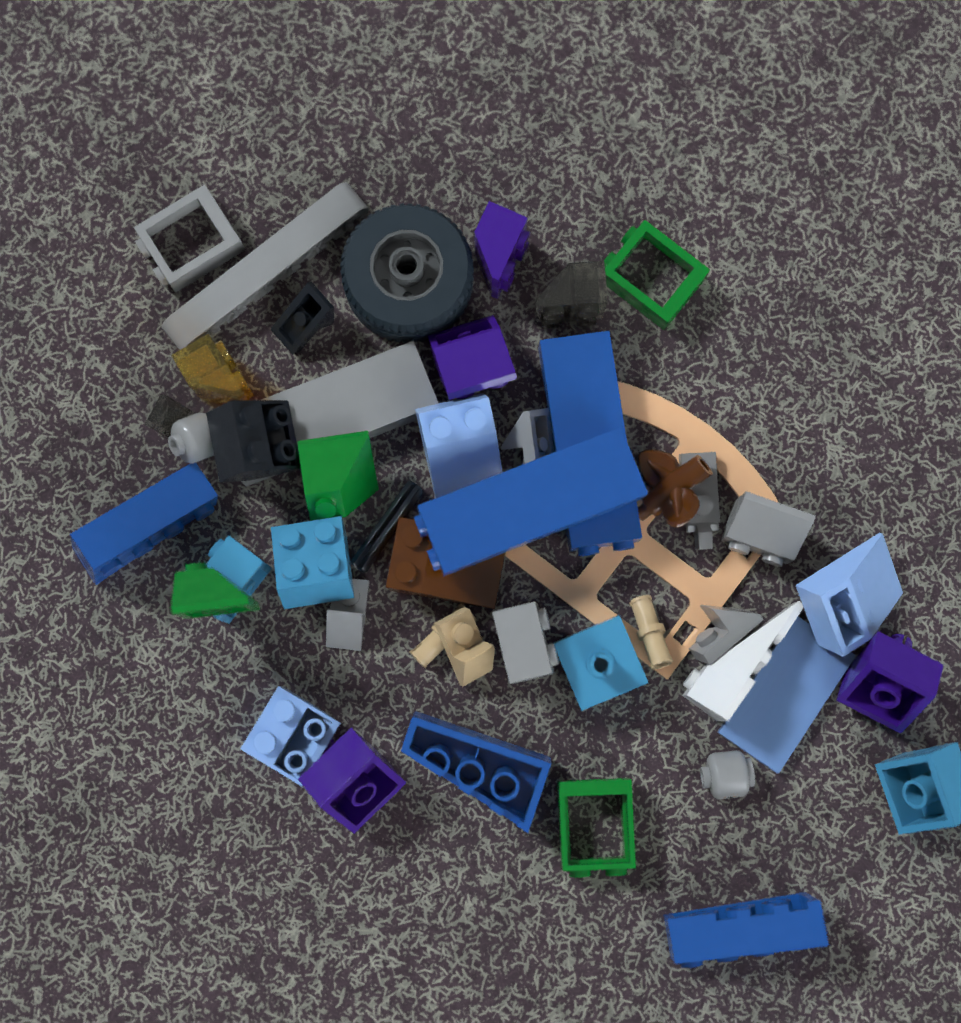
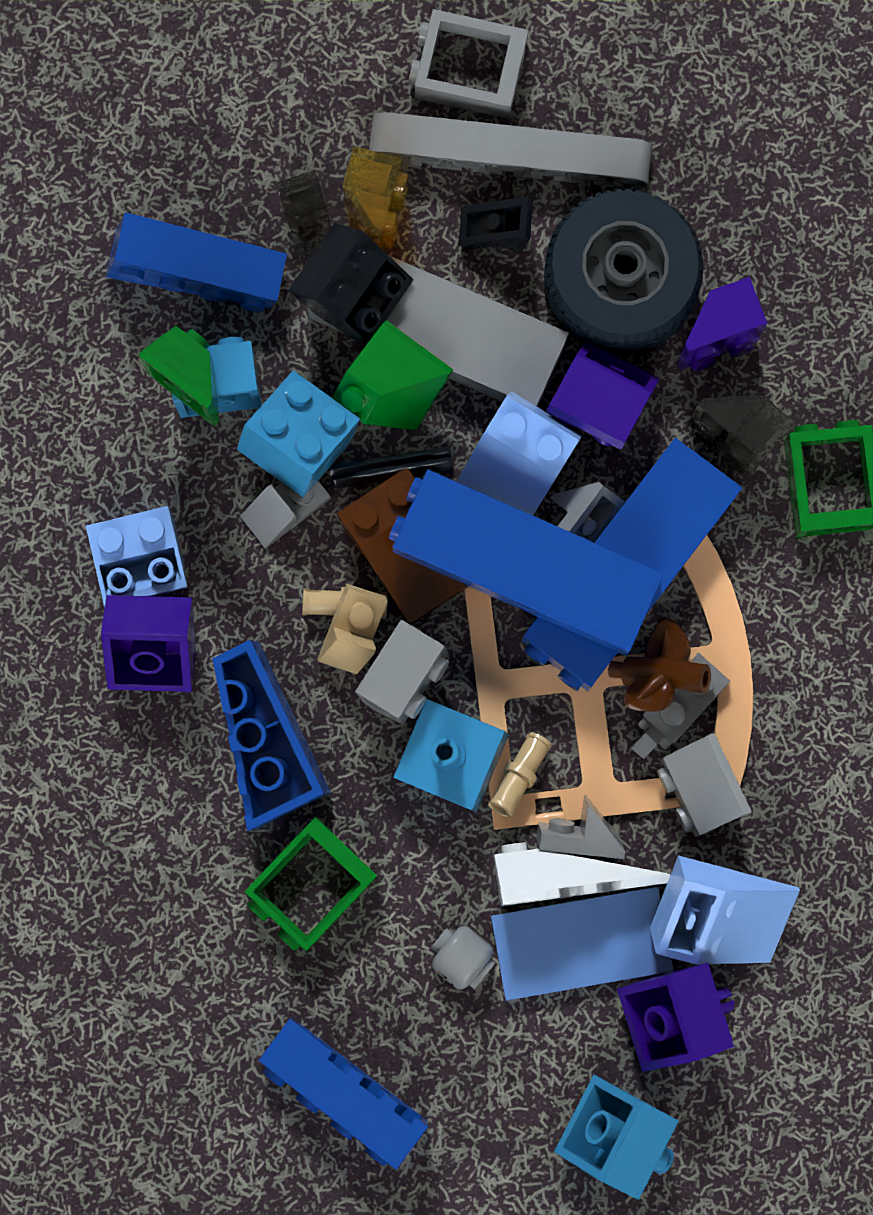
camera: 45 degrees right, 0 degrees up
(191, 438) = (301, 232): light grey head -> none

